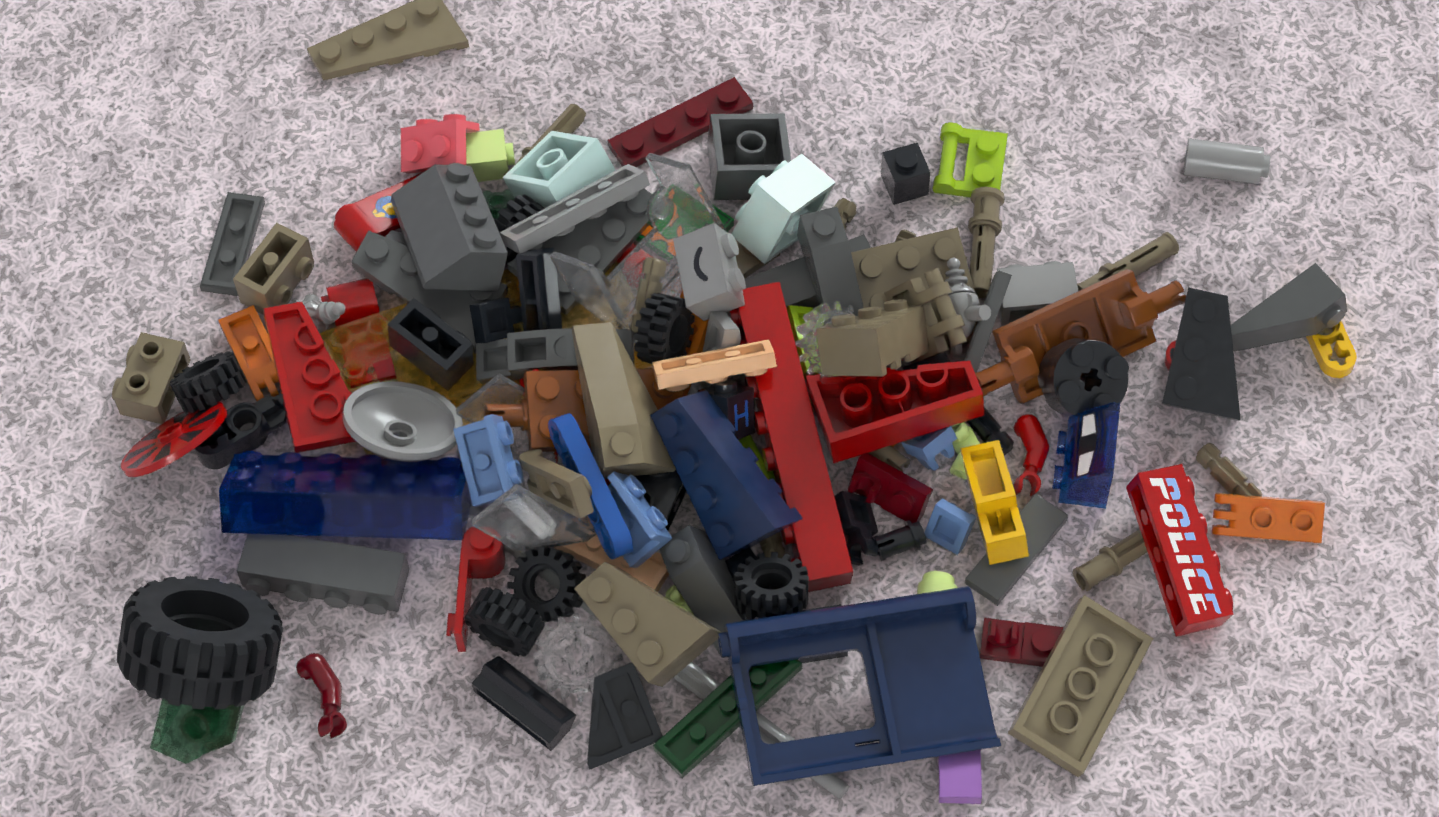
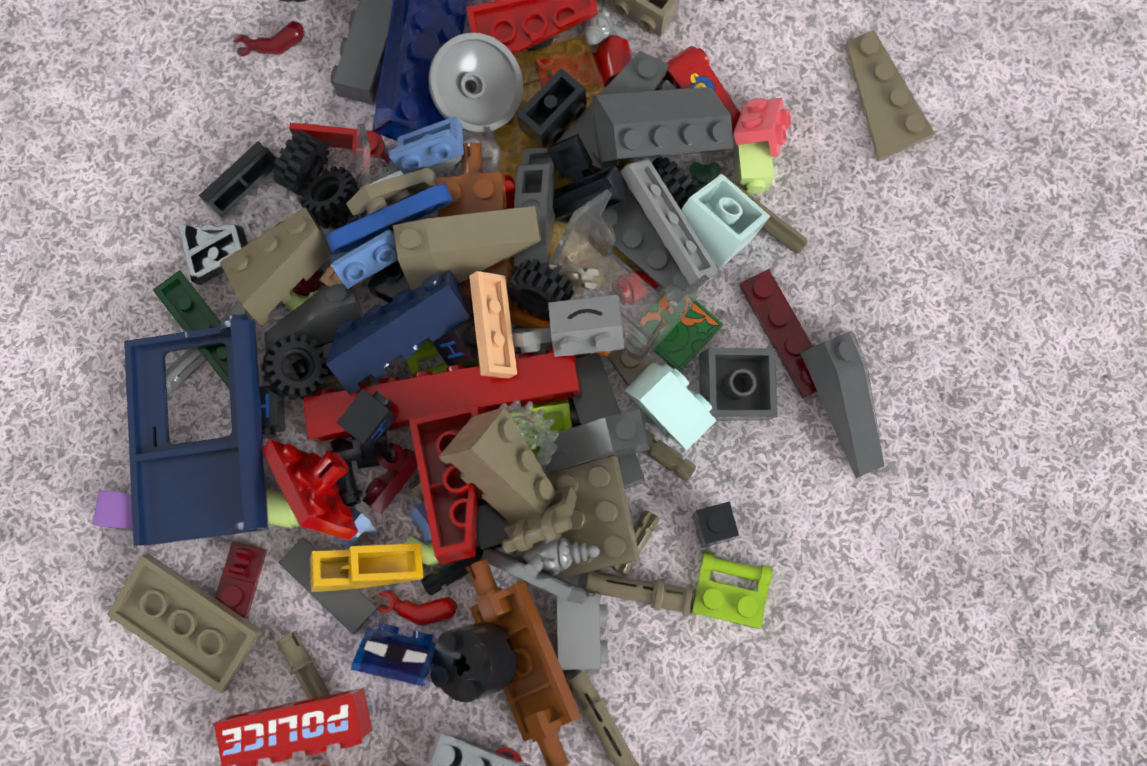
camera: 90 degrees right, 15 degrees up
(739, 61) = (846, 393): none -> dark grey wedge
(830, 490) = (368, 417): none -> black brick
(911, 541) = (312, 488): none -> red plate

